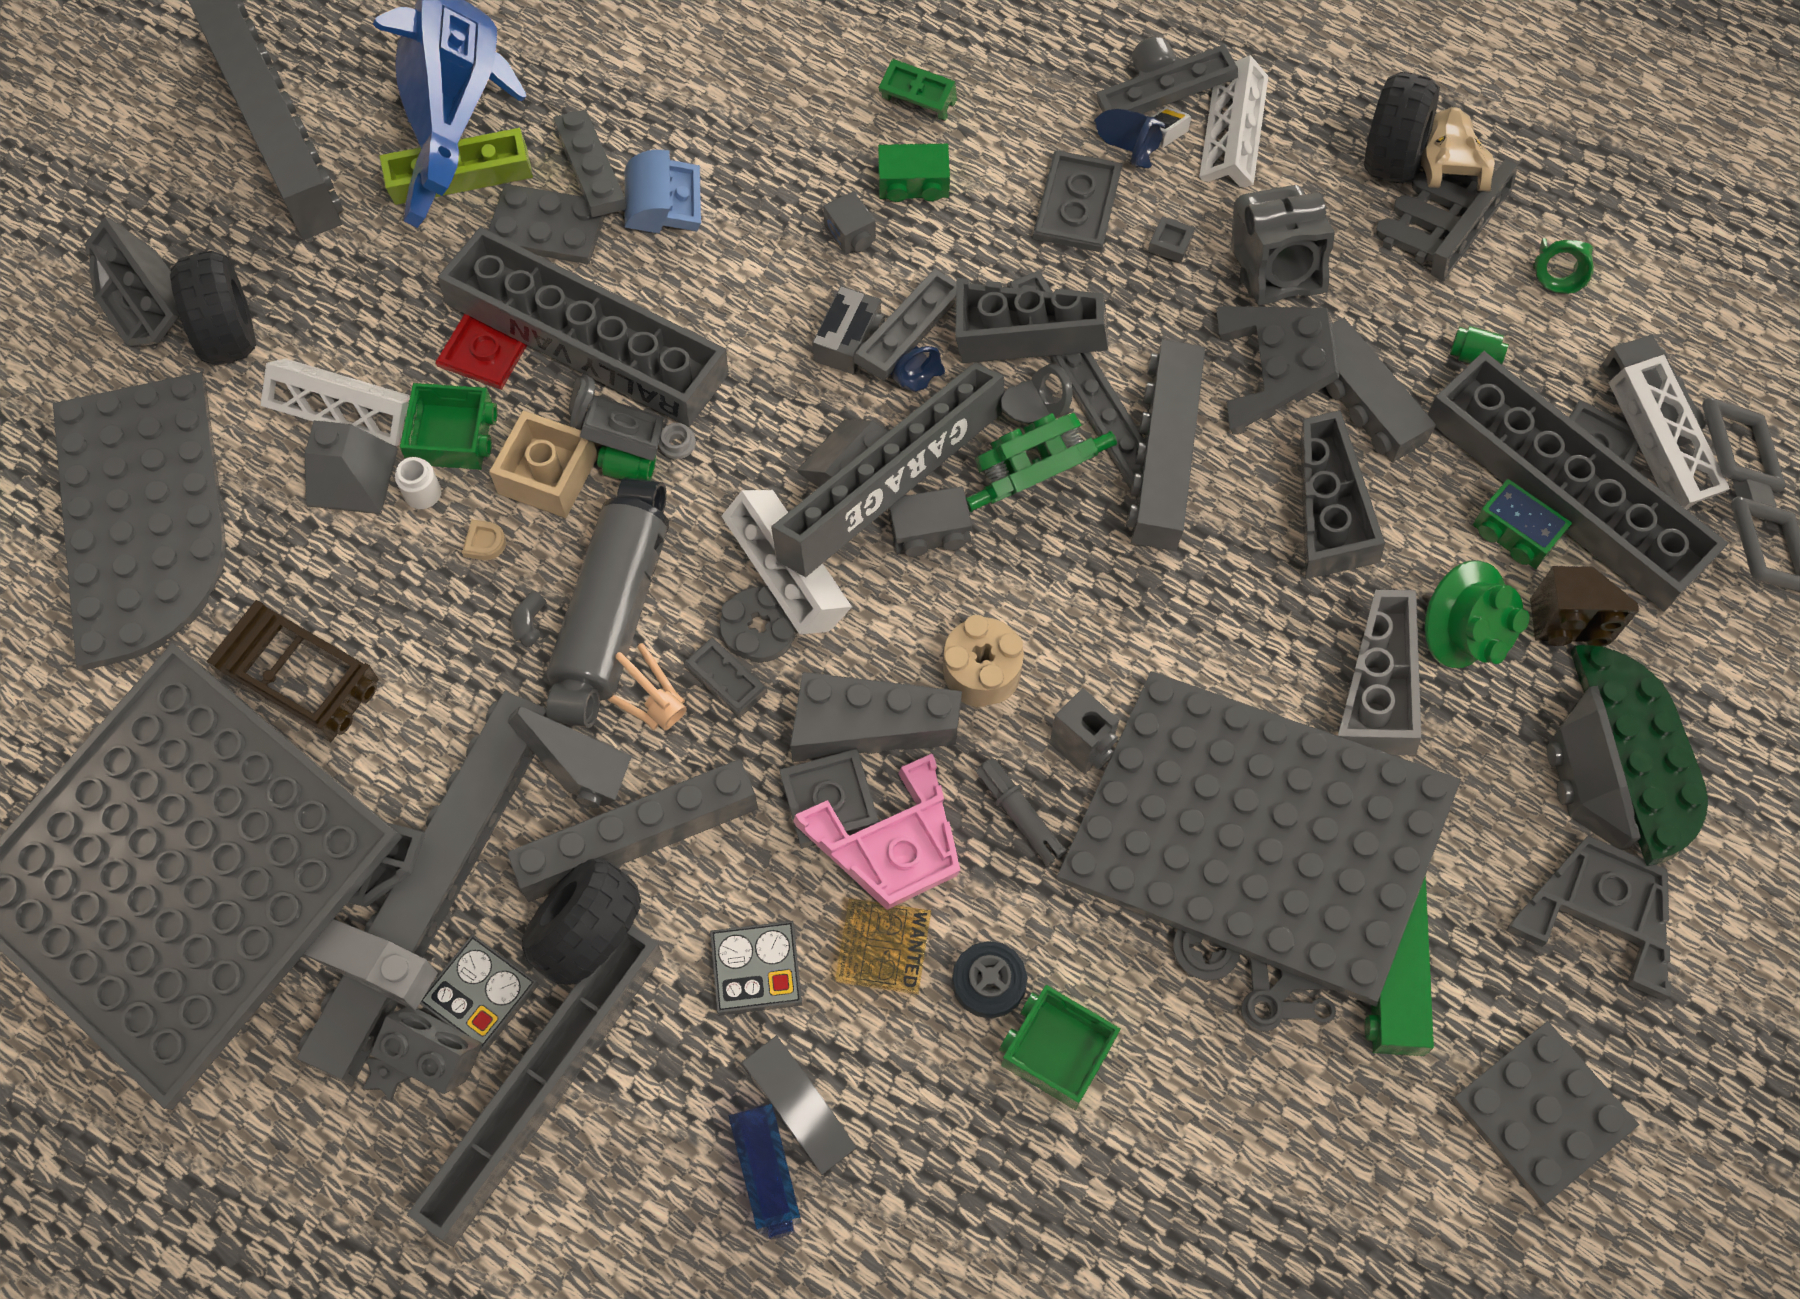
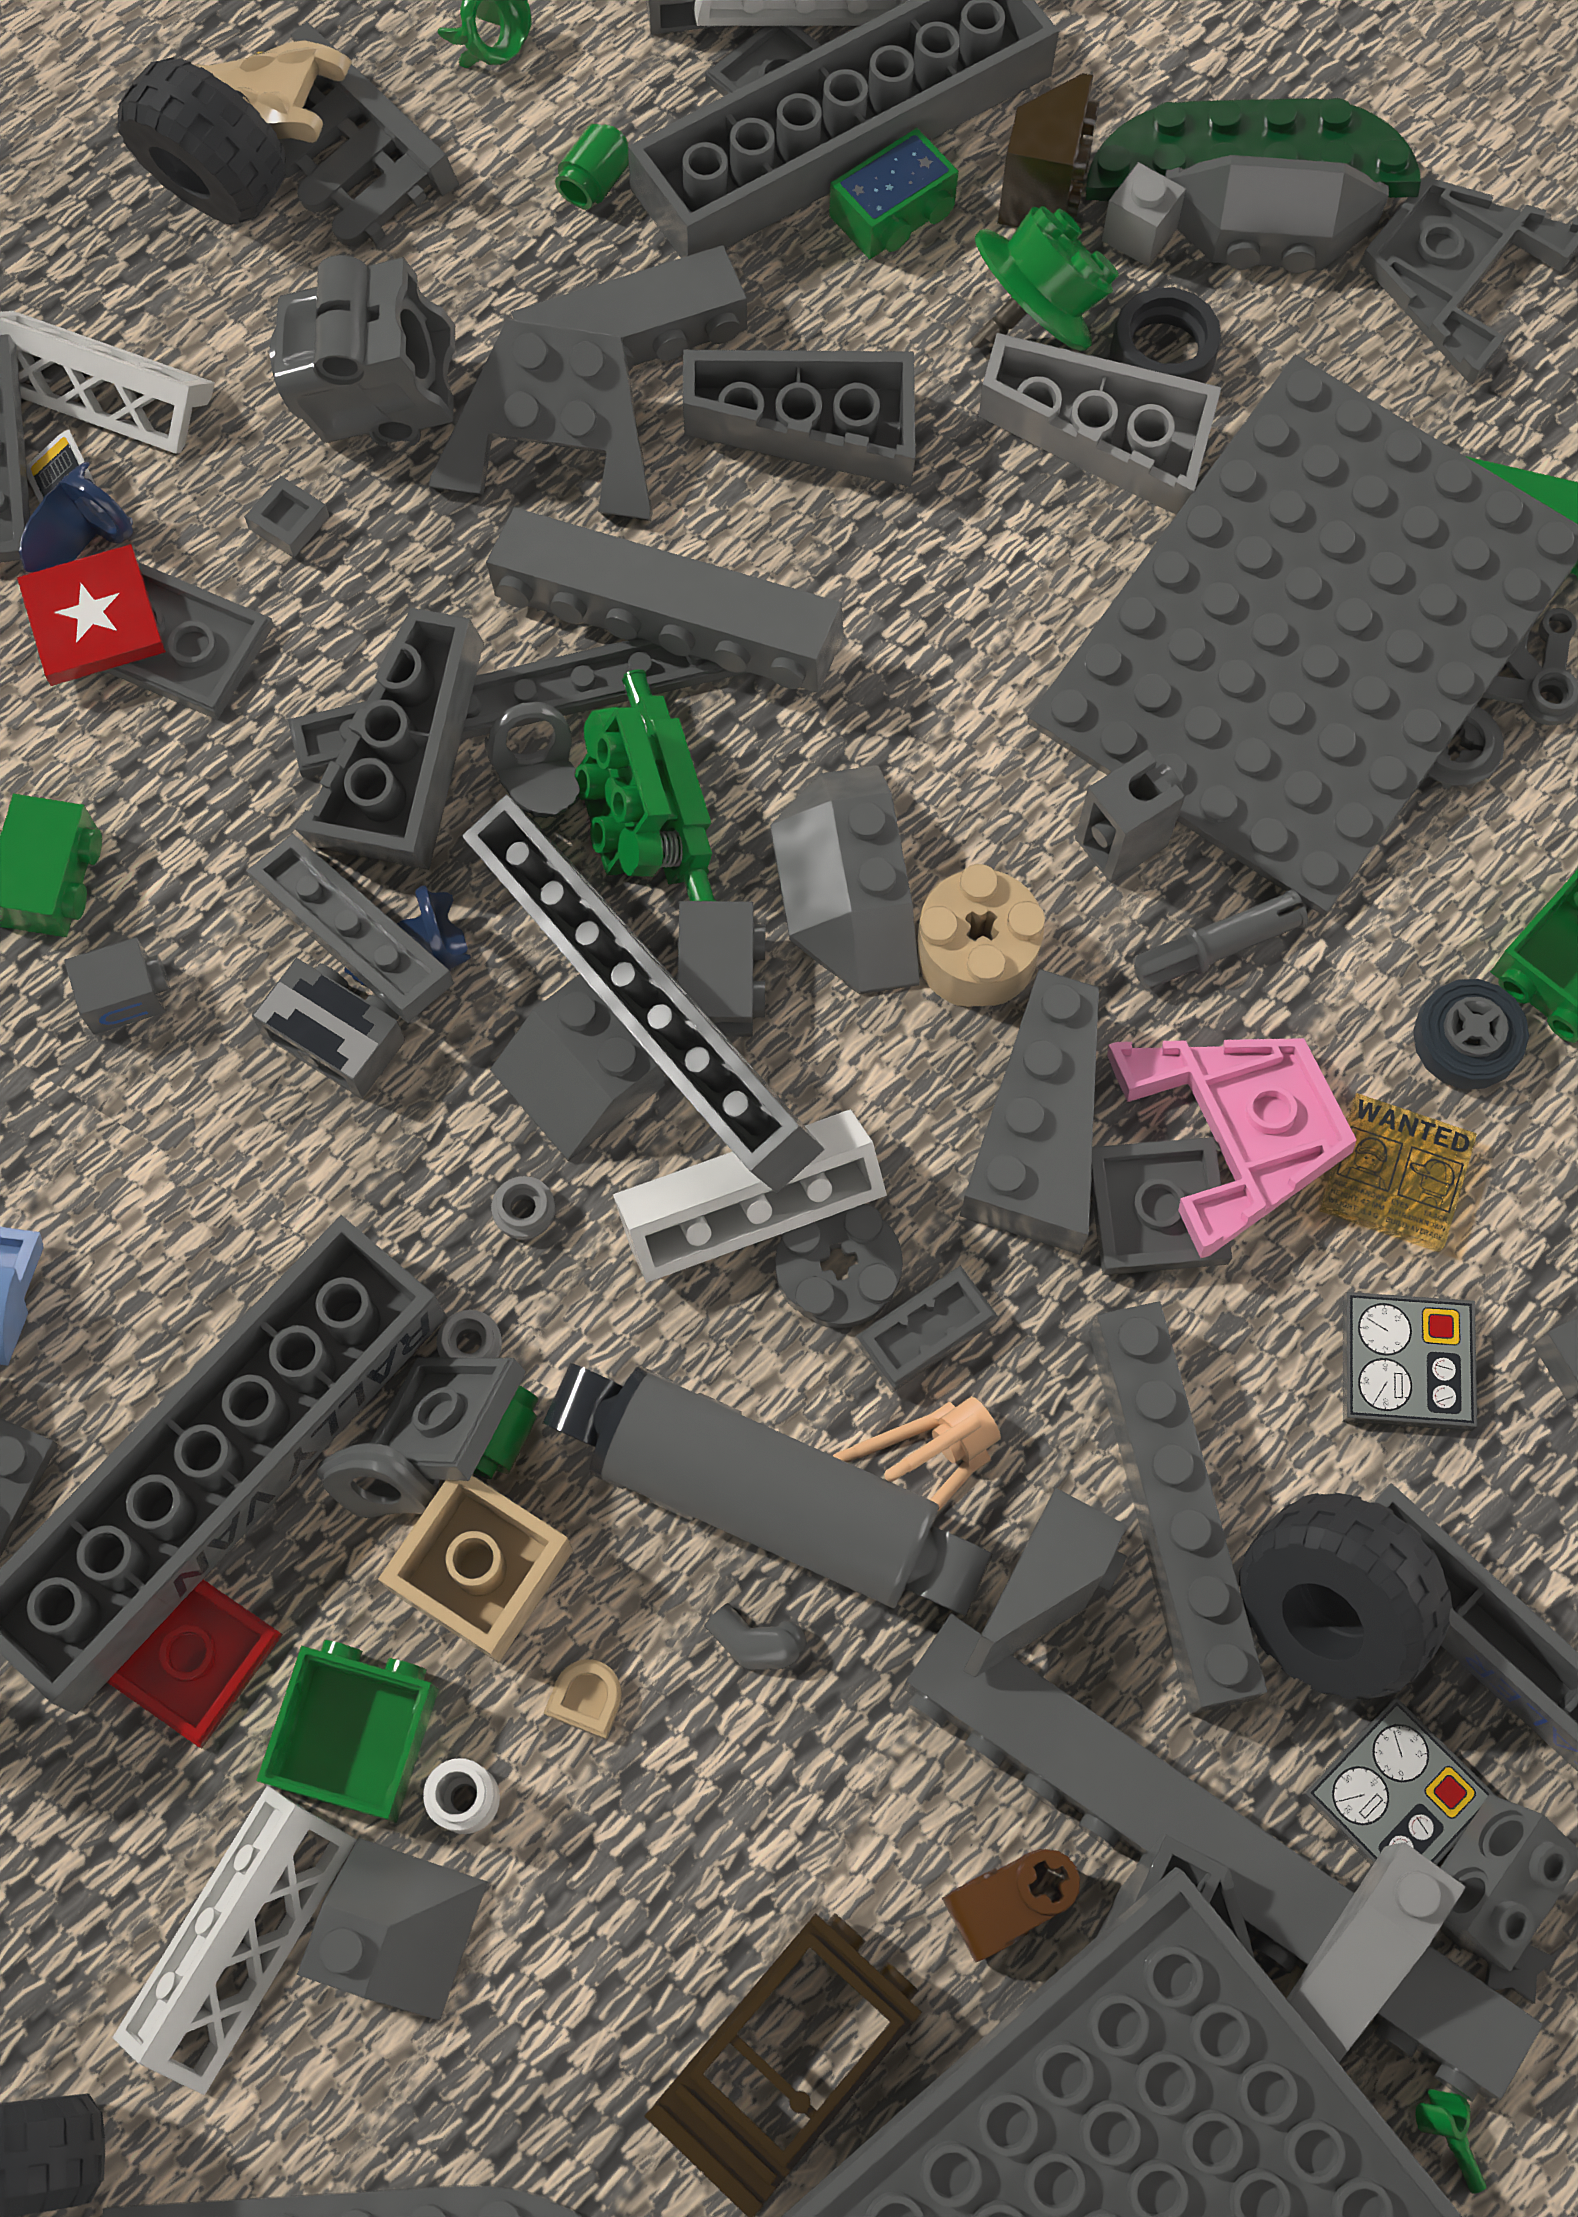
camera: 80 degrees left, 5 degrees up
(285, 1044) = (1450, 2117): none -> green hand
(390, 775) = (999, 1905): none -> reddish brown piece
(761, 442) = (518, 1189): none -> light grey plate
(1013, 581) = (848, 880): none -> dark grey wedge
(1075, 157) = (90, 615): none -> red tile
(1448, 737) = (1175, 308): none -> black tyre
(1561, 681) = (1143, 214): none -> light grey brick

